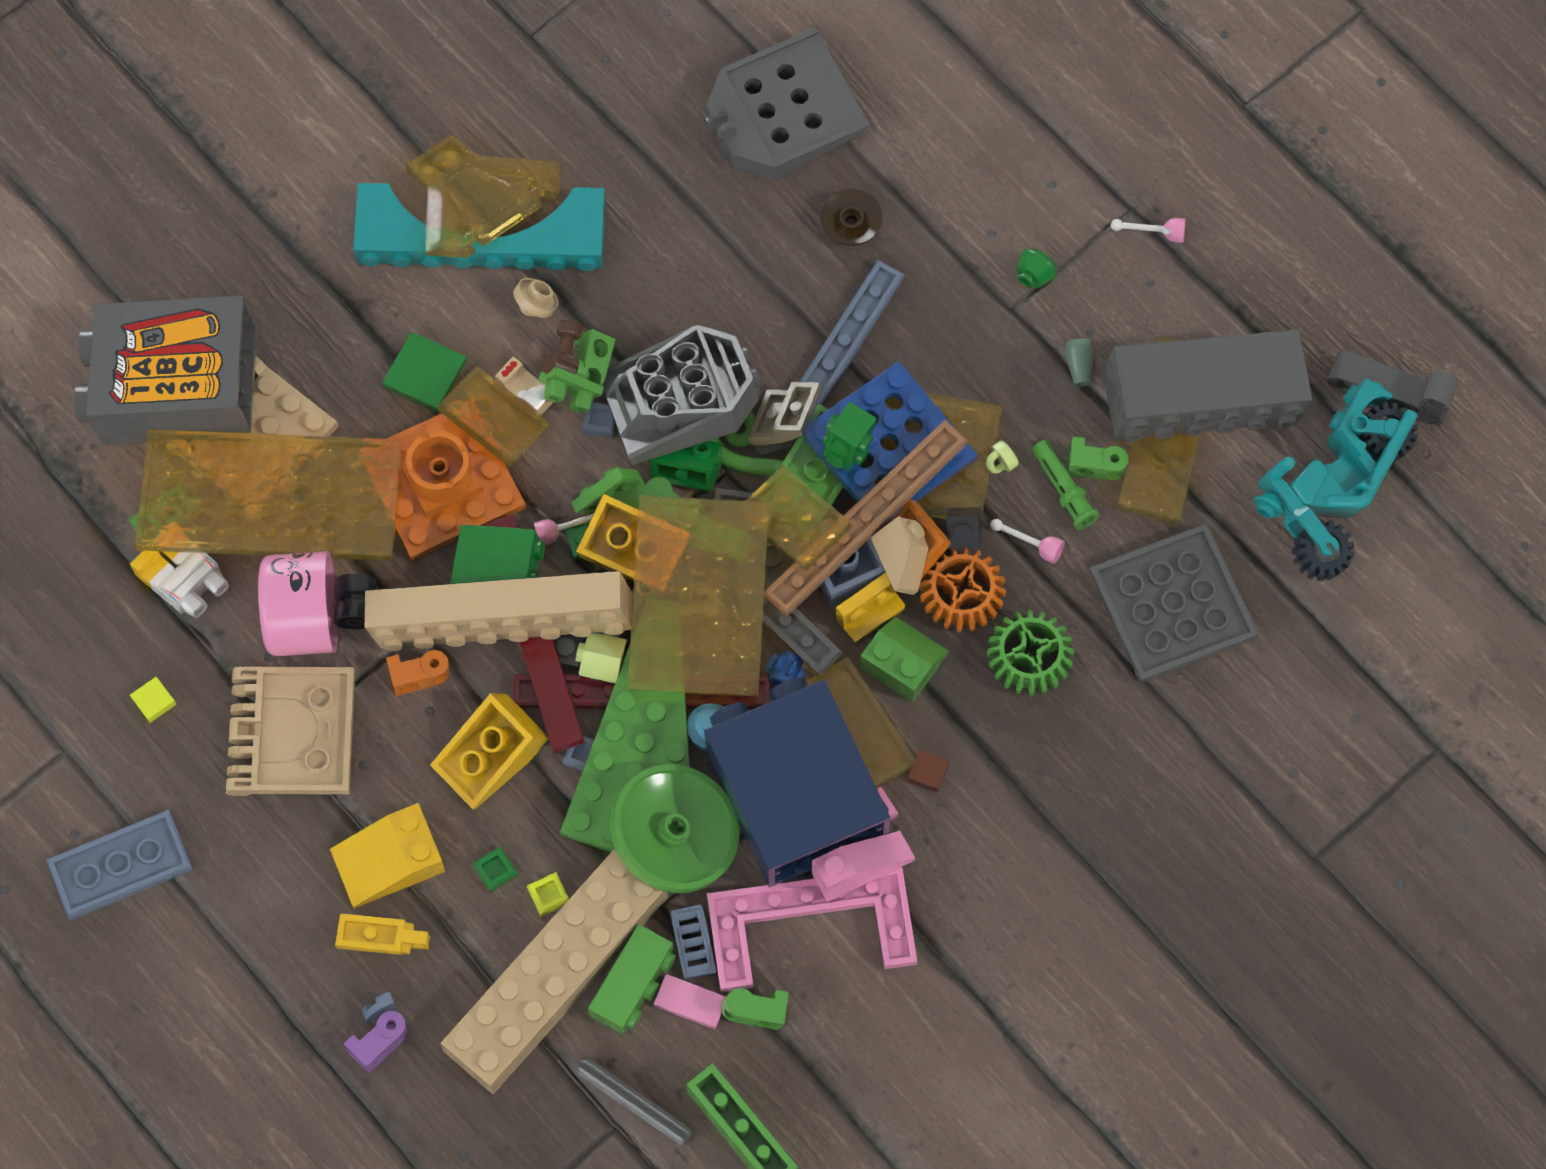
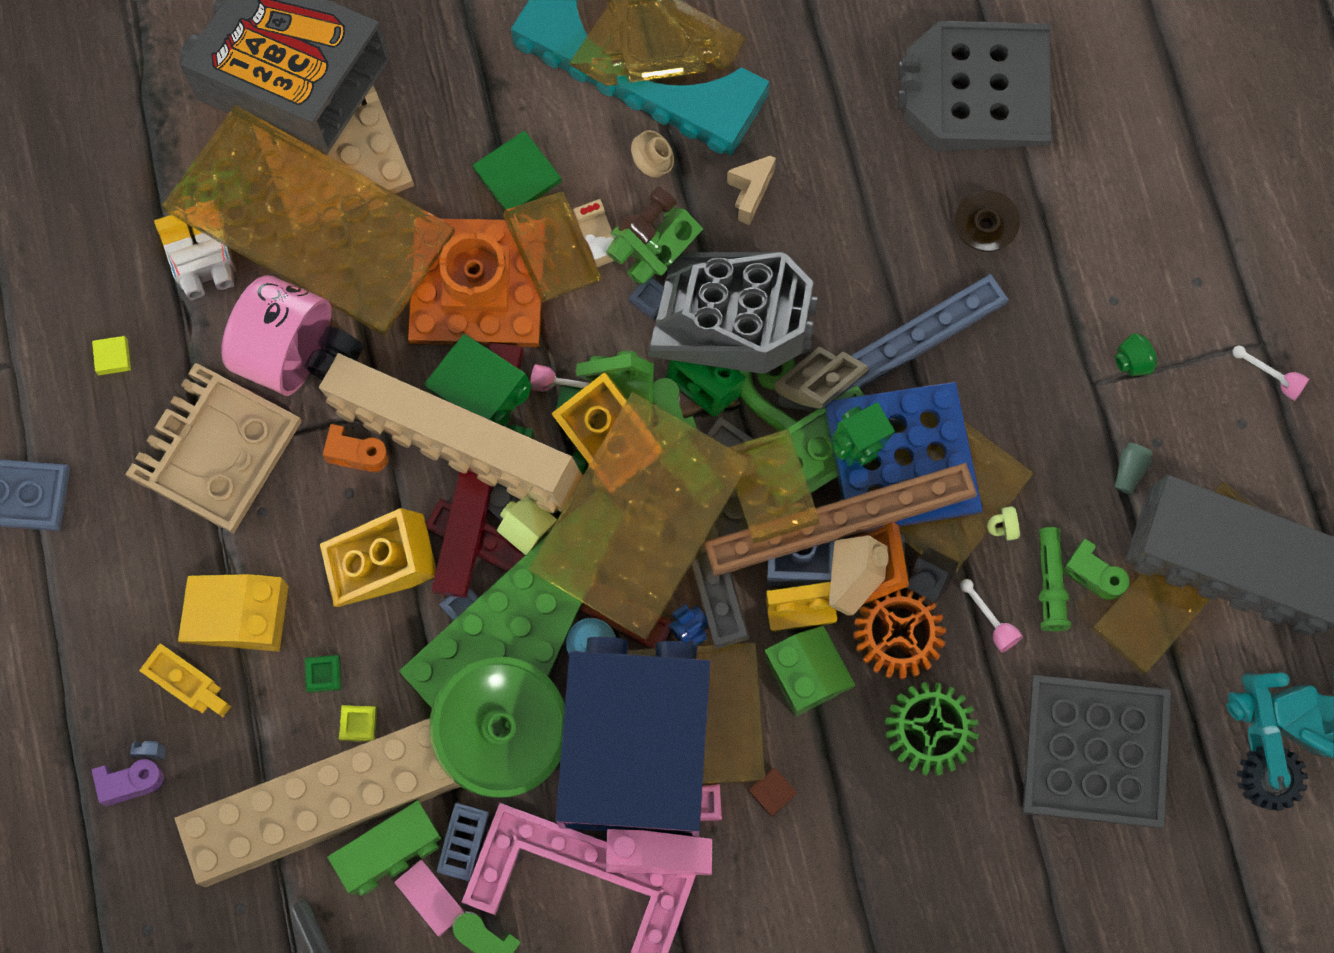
camera: 30 degrees right, 5 degrees up
(634, 279) = (753, 182): none -> tan slope

